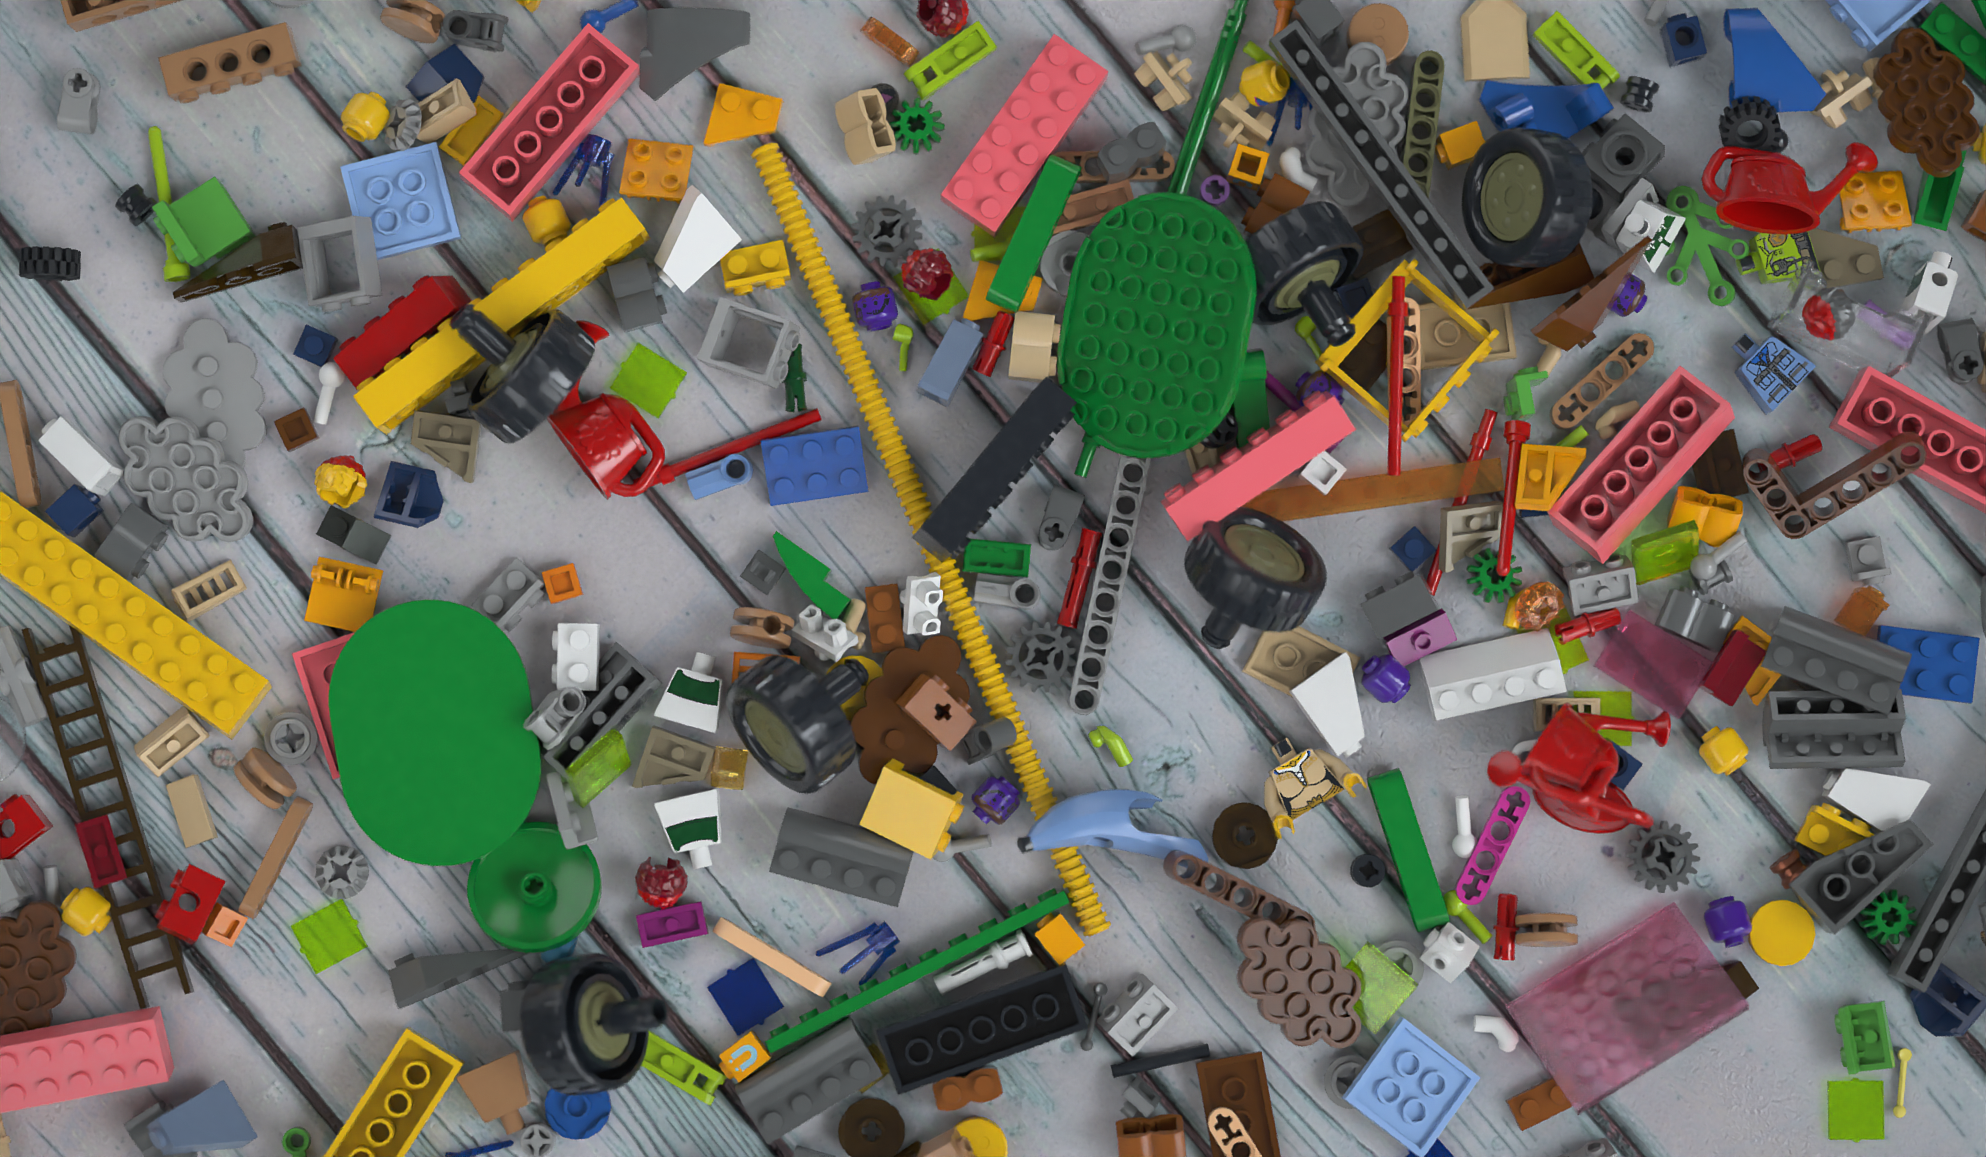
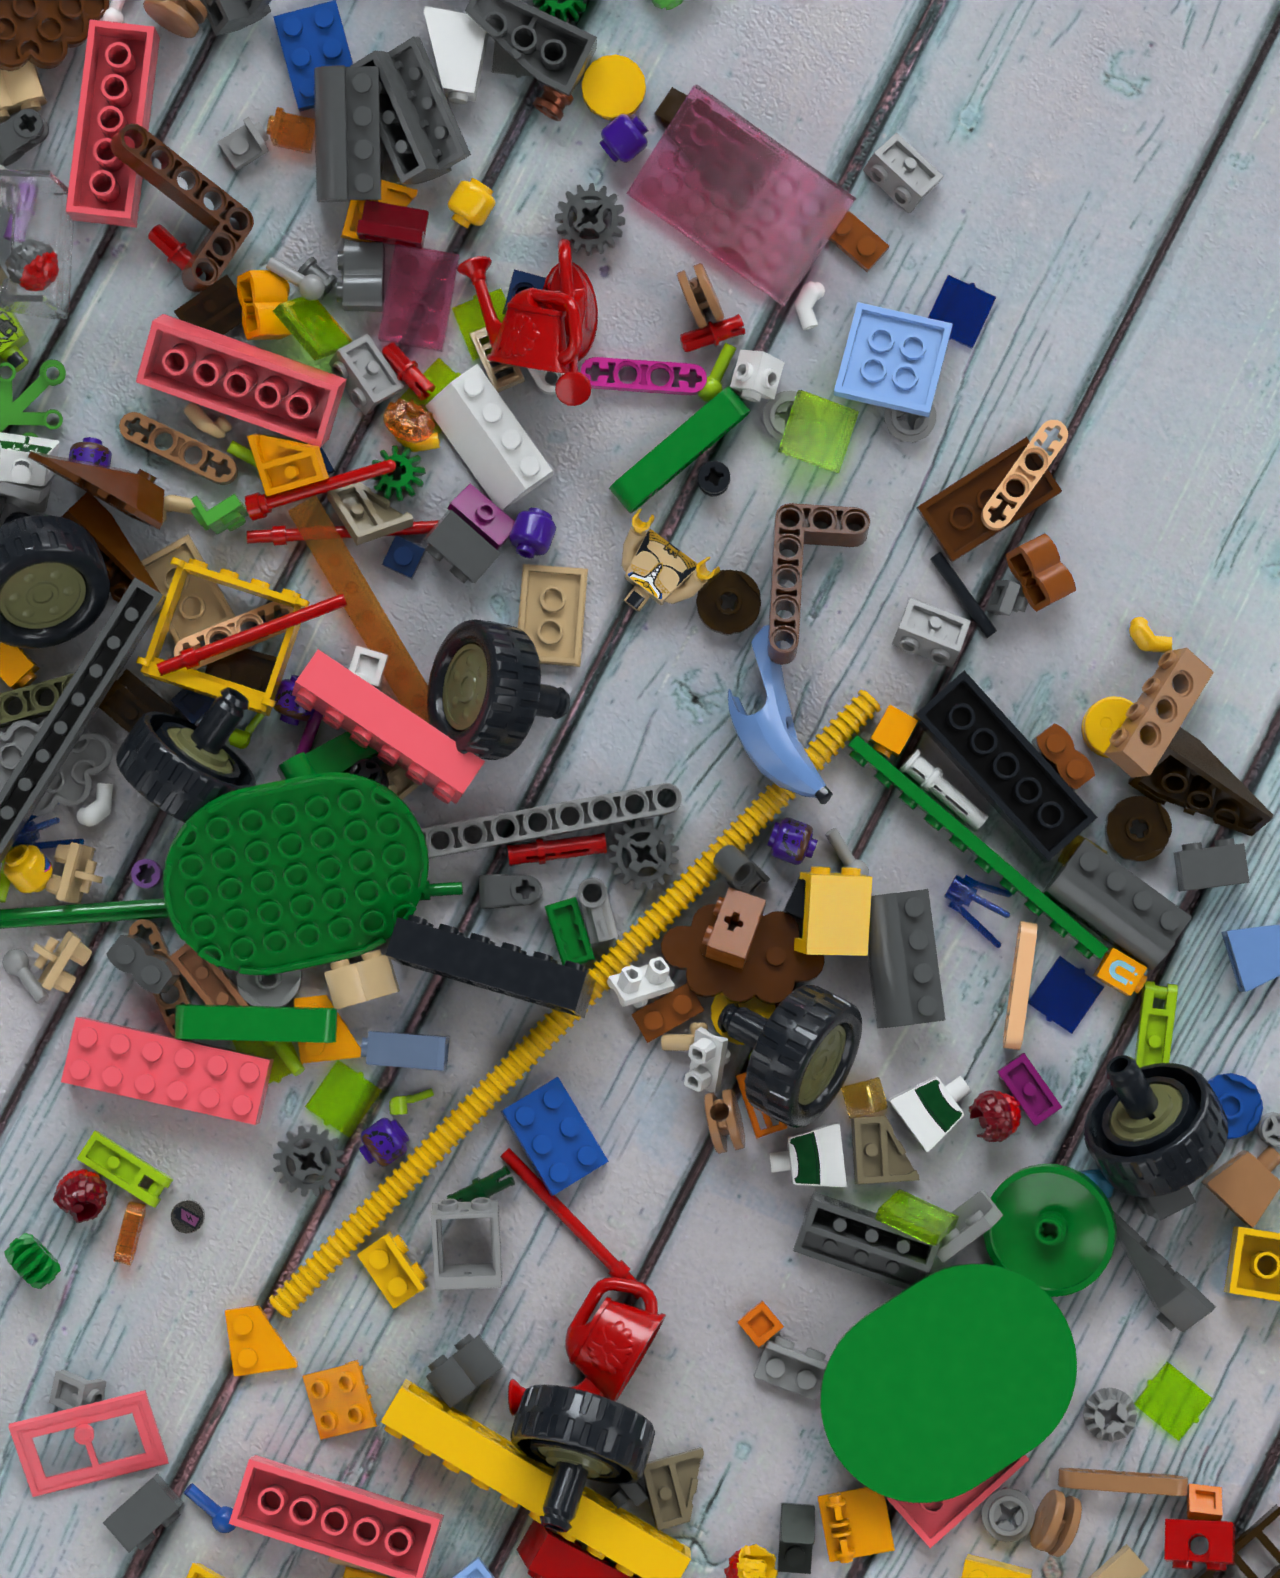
camera: 110 degrees left, 0 degrees up
(409, 496) = (739, 1501): dark blue slope -> none
(546, 220) = (429, 1483): yellow head -> none
(551, 719) = (891, 1280): light grey piece -> none
(576, 656) = (823, 1281): white bracket -> none
(591, 152) = (347, 1466): clear blue plant -> none
(648, 380) = (539, 1324): clear neon green piece -> none
(686, 40) = (208, 1424): dark grey panel -> none
(693, 241) = (393, 1336): white slope -> none
(716, 476) = (603, 1222): medium blue piece -> none
(763, 572) = (672, 1142): dark grey tile -> none
(811, 577) = (659, 1095): green slope -> none
(865, 126) = (219, 1222): tan brick -> none
(913, 115) = (208, 1167): green gear -> none
(927, 273) = (333, 1106): dark red piece -> none
(993, 344) = (373, 1017): red axle -> none
(1100, 990) = (922, 674): dark grey hinge -> none
(1115, 743) = (694, 754): lime arm -> none
(1247, 167) = (113, 851): light orange brick -> none
(1276, 199) = (132, 811): dark orange brick -> none
(1299, 982) = (842, 497): plate -> none
(1333, 705) = (577, 570): white slope -> none
(1464, 841) = (650, 402): white bar -> none
(1770, 370) = (106, 300): medium blue torso -> none
(1828, 832) = (506, 79): yellow bracket -> none

